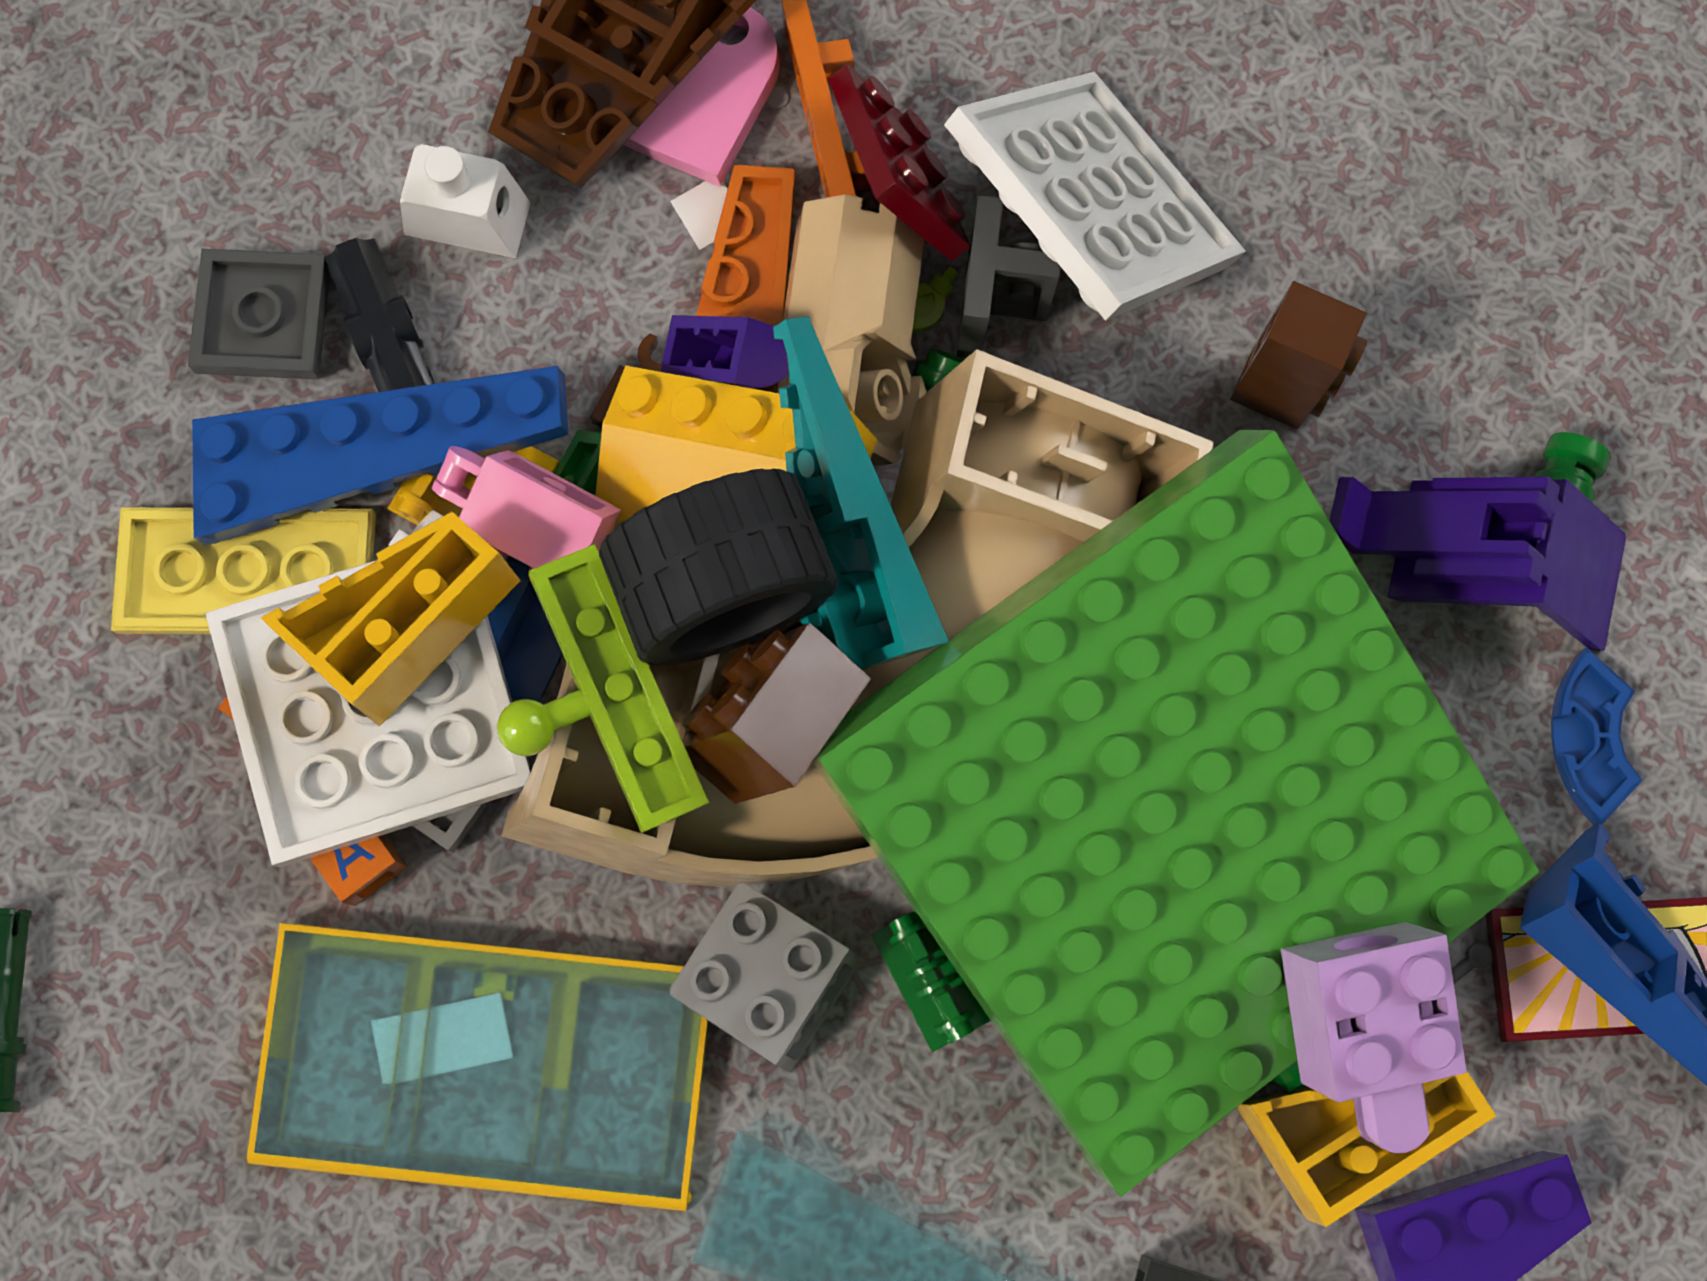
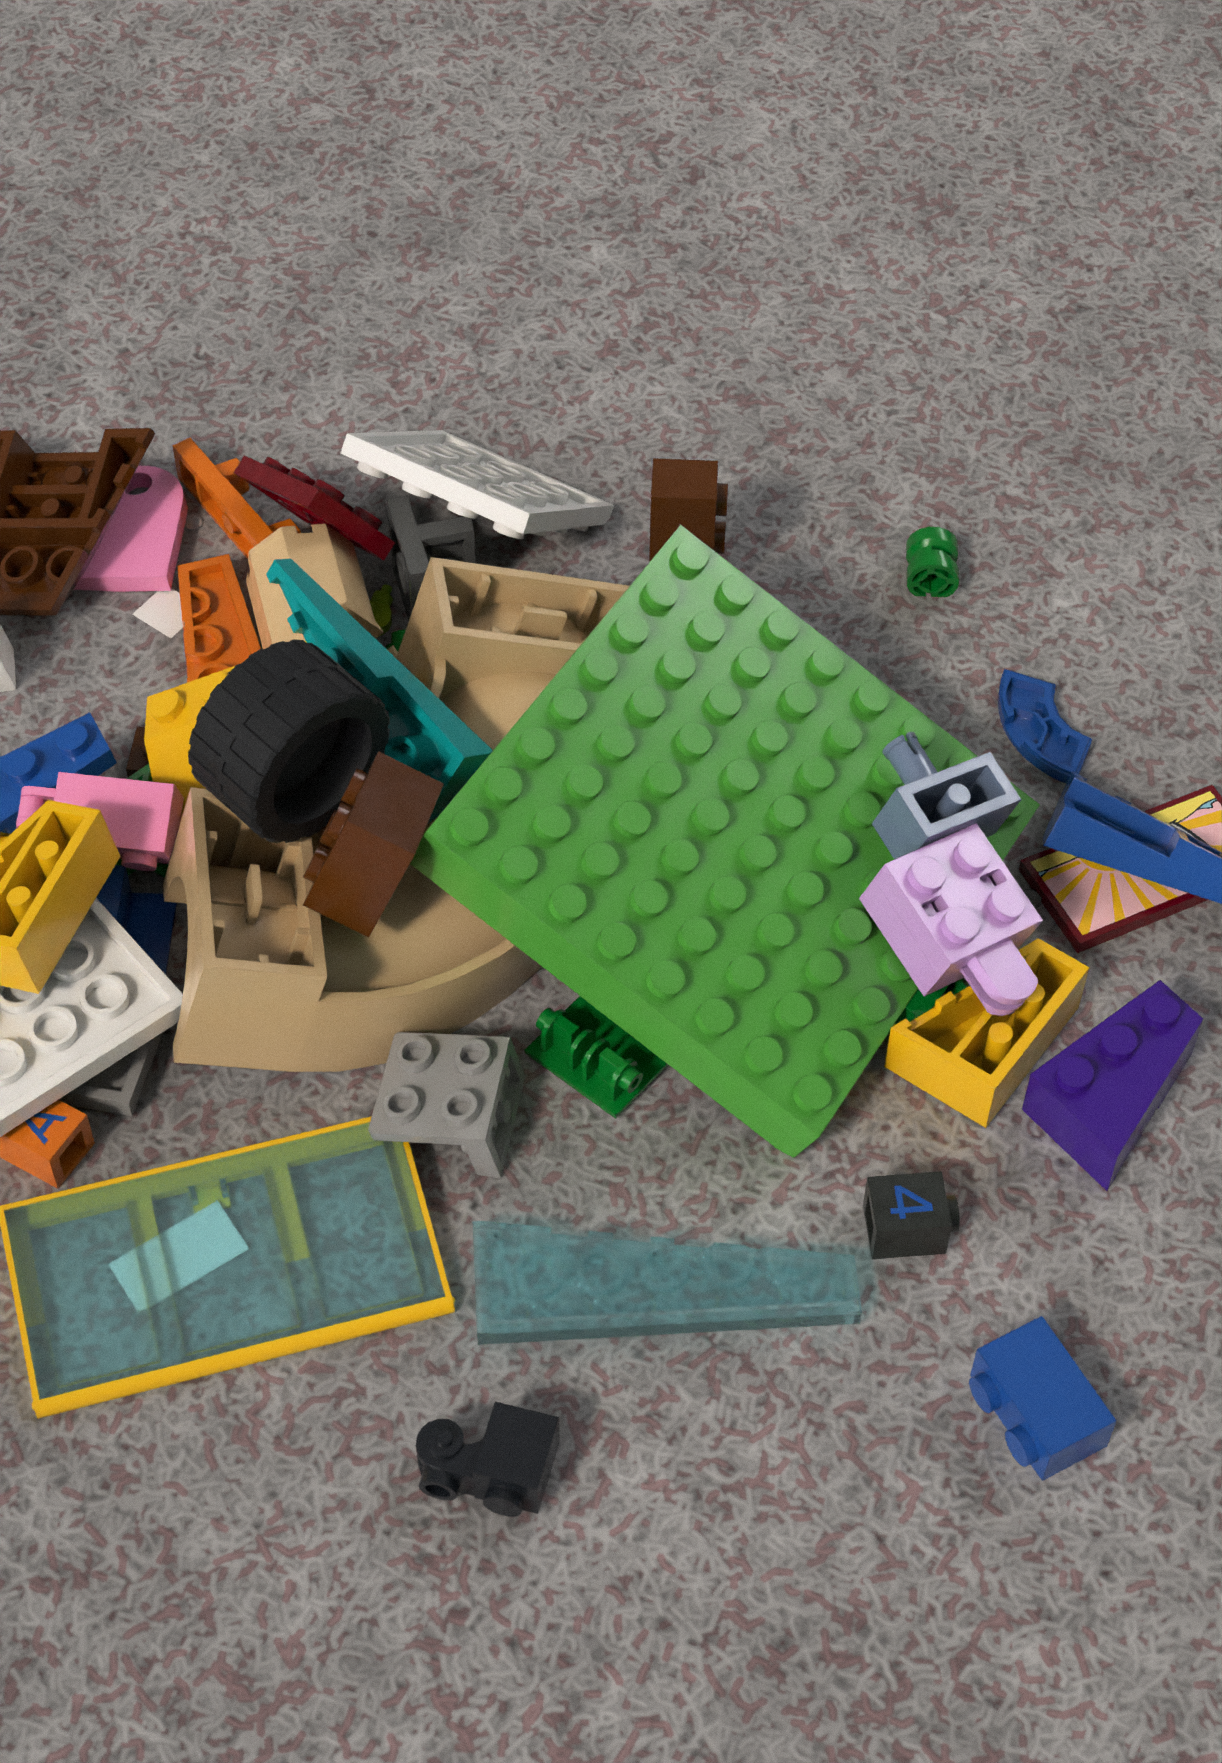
camera: 20 degrees left, 25 degrees down
(612, 690) = (237, 860): lime plate -> none
(725, 351) = (228, 644): dark purple brick -> none
(1419, 891) = (943, 801): none -> sand blue brick
(1491, 545) = (905, 598): dark purple piece -> none

